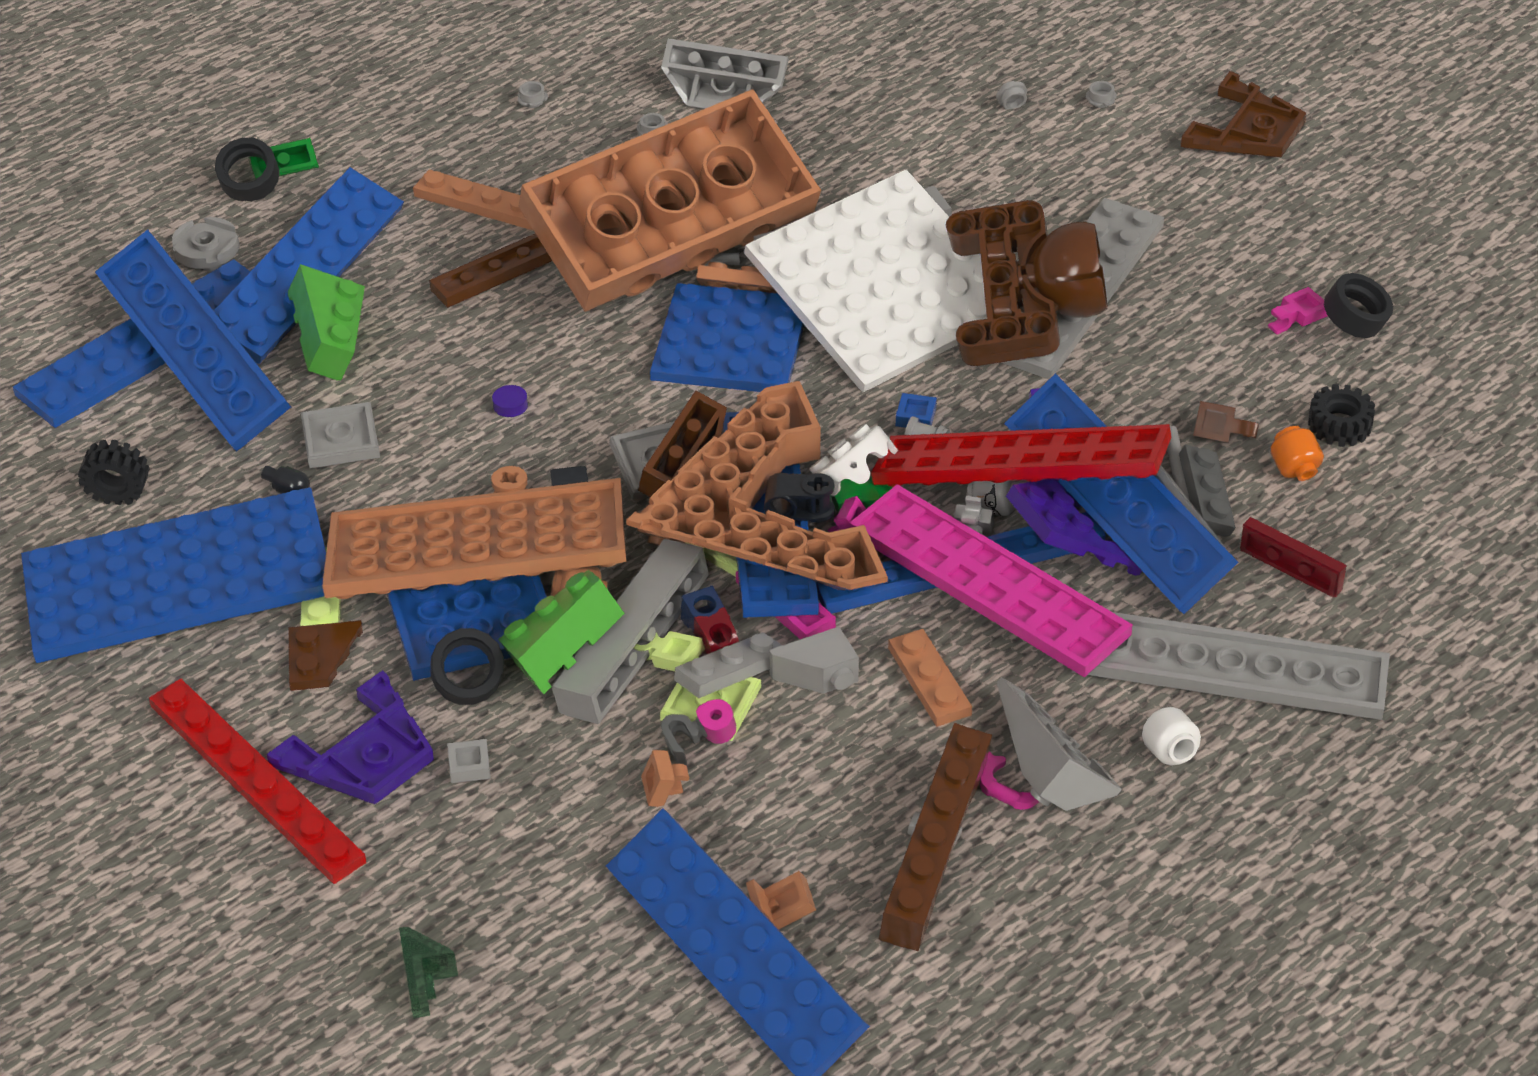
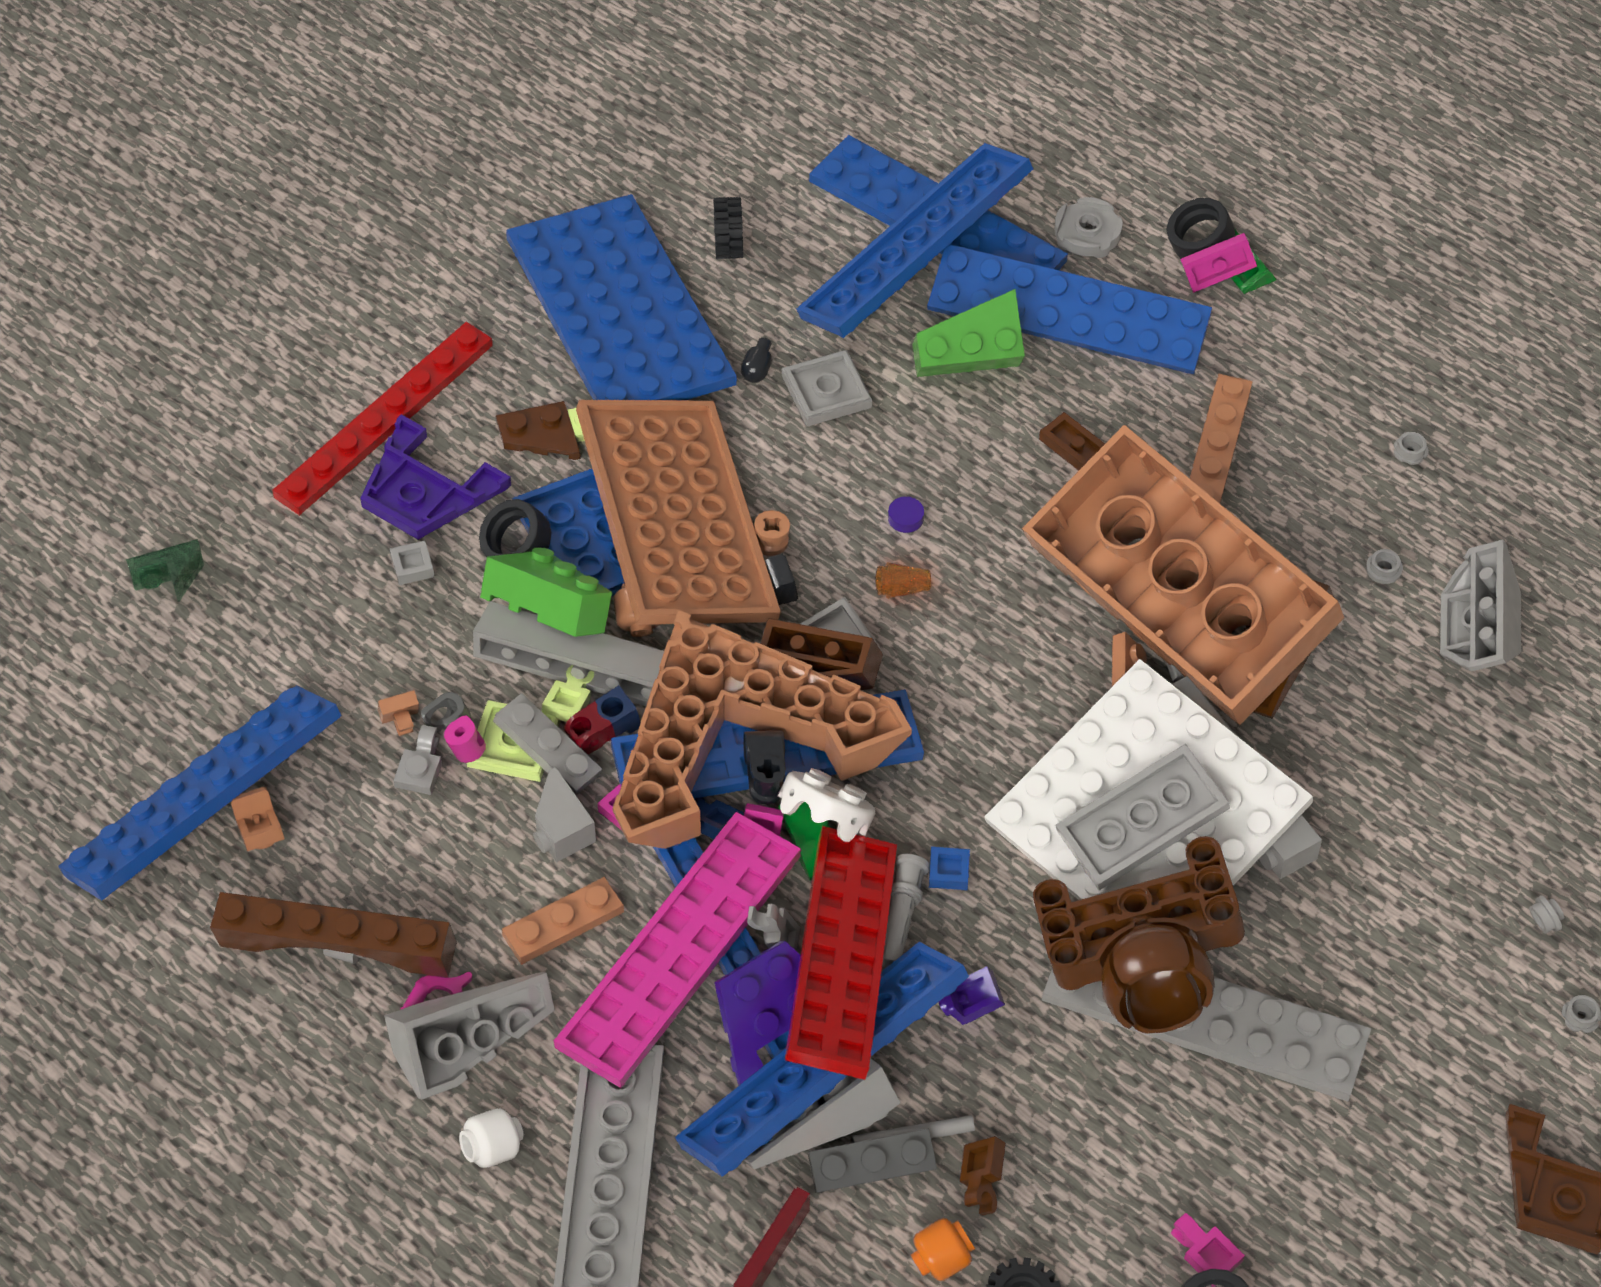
camera: 80 degrees right, 10 degrees up
(292, 162) = (1218, 262): none -> dark pink plate
(590, 409) = (901, 580): none -> clear orange cone
(727, 339) = (1033, 682): blue plate -> none
(727, 774) = (420, 768): none -> light grey plate
(906, 268) = (1142, 816): none -> light grey plate

